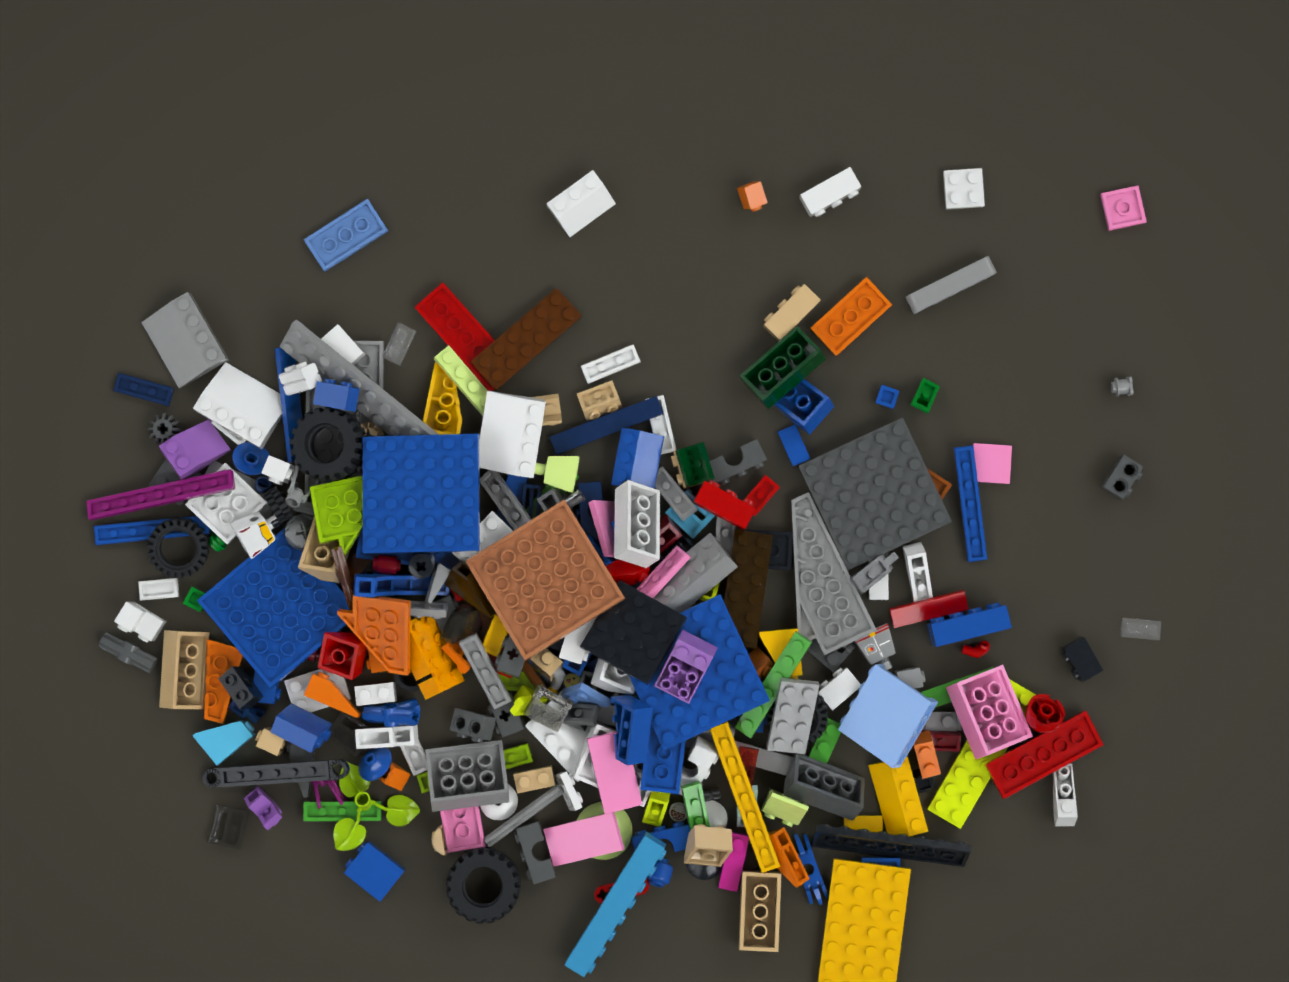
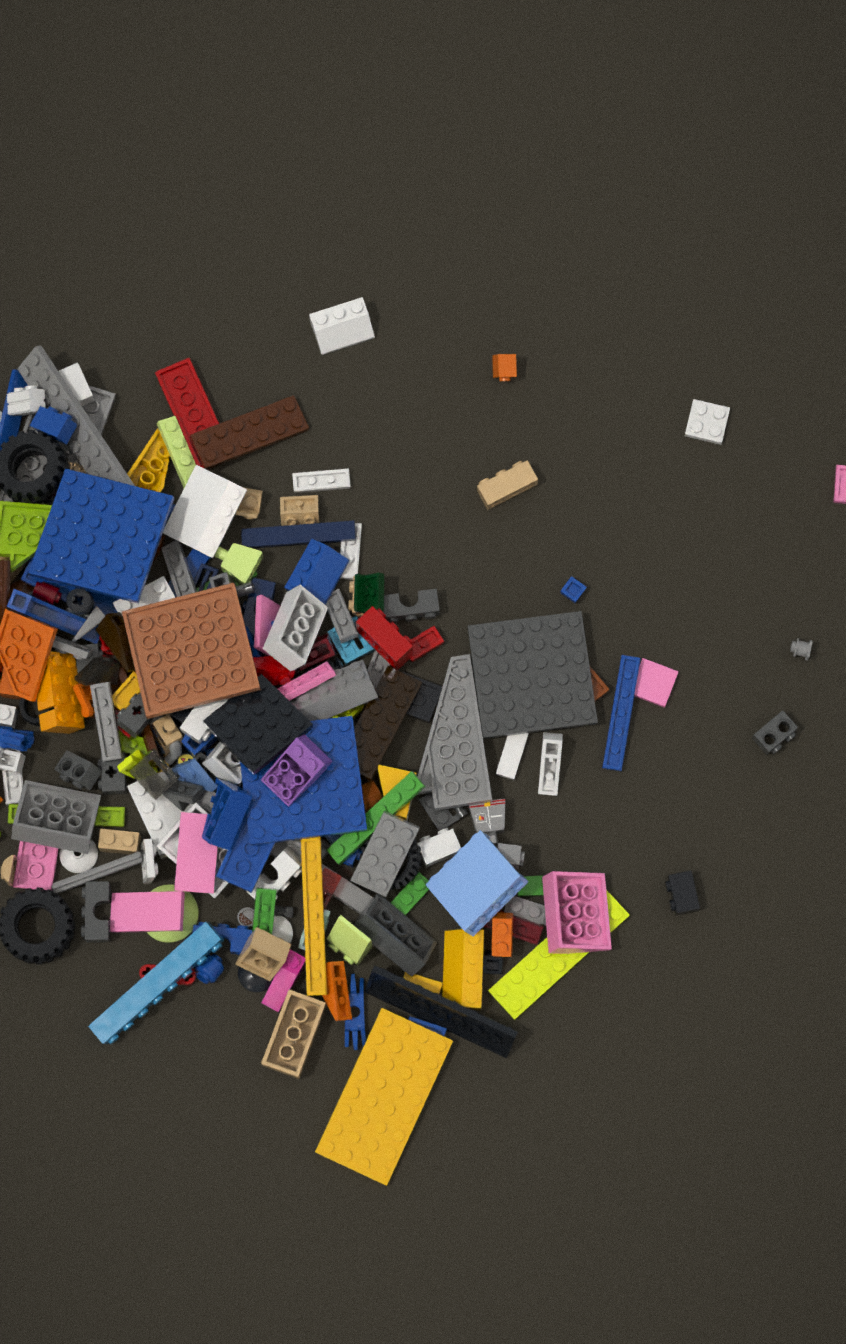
camera: 20 degrees right, 10 degrees down
(346, 235) = (114, 289): medium blue tile -> none
(399, 344) = (129, 401): clear plate -> none
(656, 808) = (227, 903): neon yellow slope -> none
(782, 367) = (481, 530): dark green brick -> none
(793, 445) = (469, 607): blue slope -> none
(805, 406) = (488, 567): blue slope -> none
(830, 193) = (579, 386): white brick -> none
(851, 316) = (562, 505): orange plate -> none
(873, 572) = (507, 746): flat silver hinge -> none
(925, 395) = (608, 599): green slope -> none
(928, 609) = (550, 800): red tile -> none
(951, 285) = (667, 505): light grey beam -> none
(970, 625) = (583, 824): blue brick -> none
(976, 651) = (584, 855): red arm -> none
(1043, 755) = (617, 971): red plate -> none
(1044, 713) = (629, 931): red cylinder -> none
(1064, 797) = (625, 1018): white slope -> none
(1140, 629) = (749, 883): clear plate -> none

